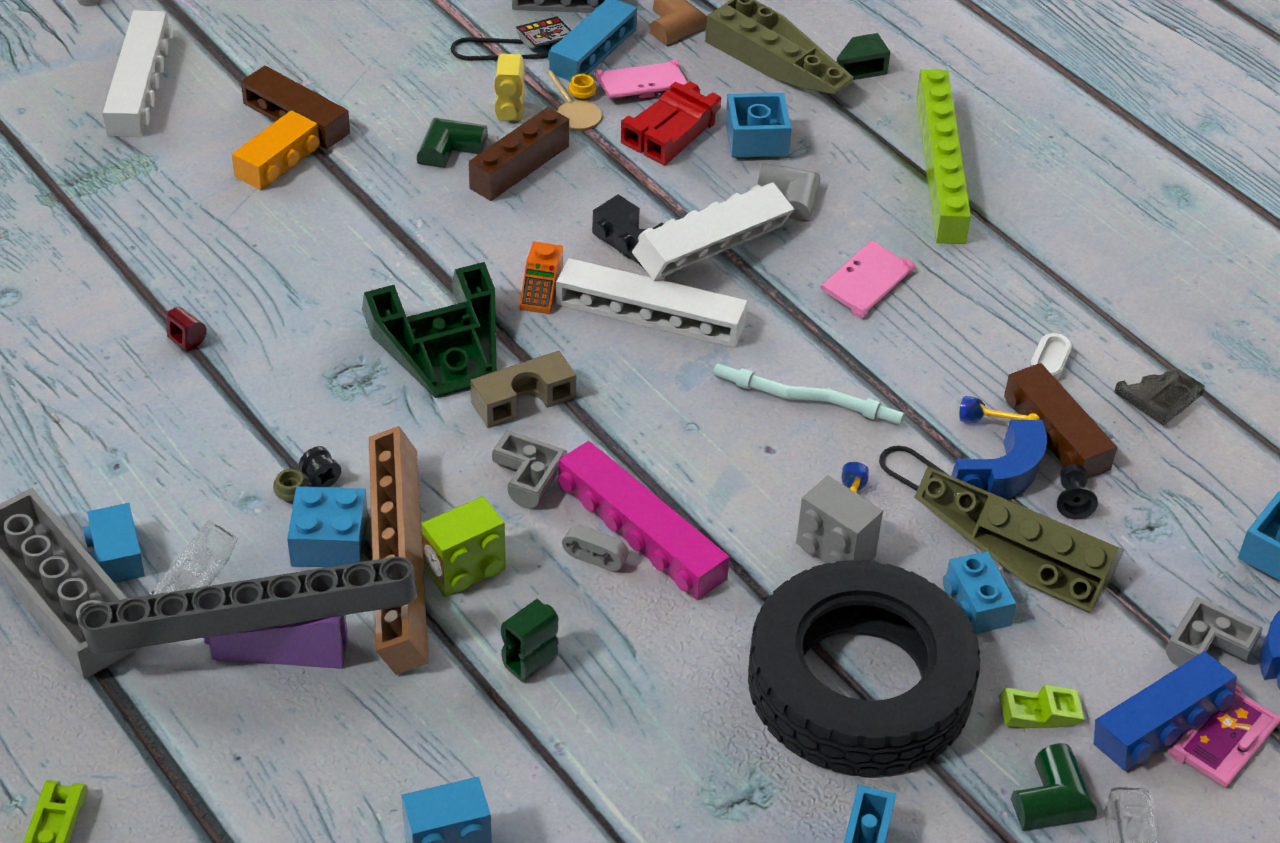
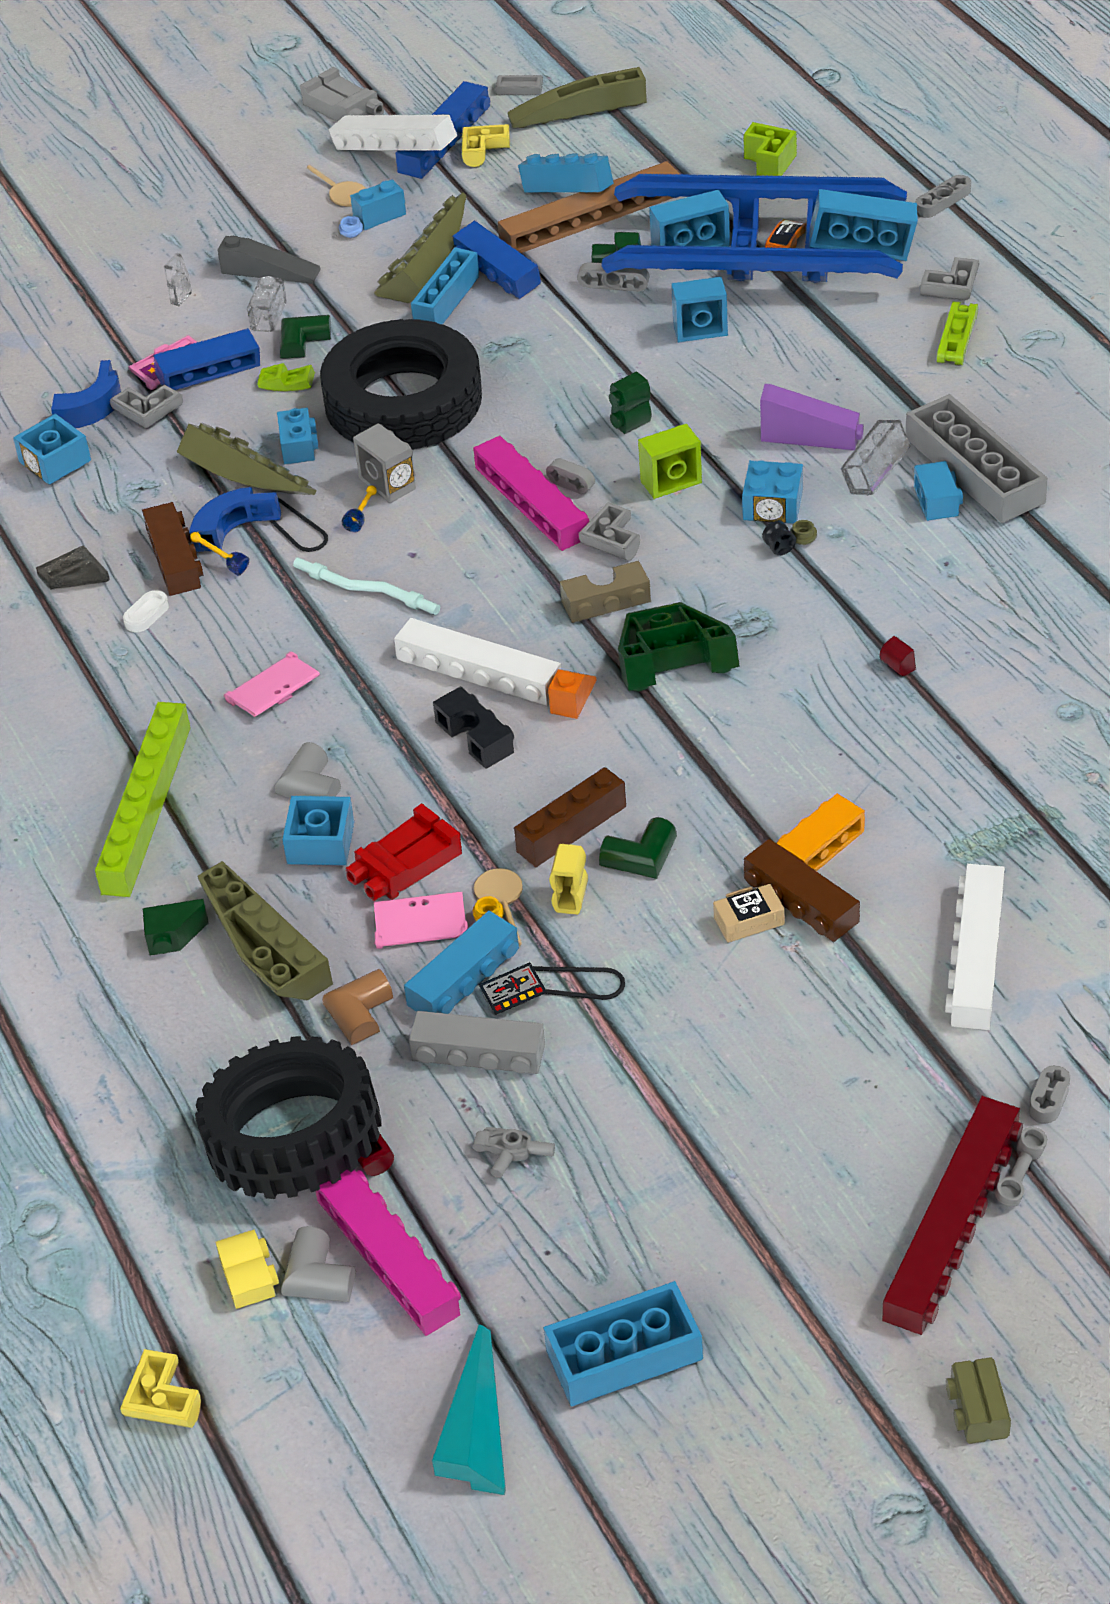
camera: 165 degrees left, 0 degrees up
(248, 605) = (826, 384): dark grey beam -> none
(347, 88) = (748, 912): none -> tan piece
(397, 533) = (720, 471): medium nougat brick -> none
(711, 230) = (402, 698): white brick -> none
(1076, 500) = (191, 489): black piece -> none

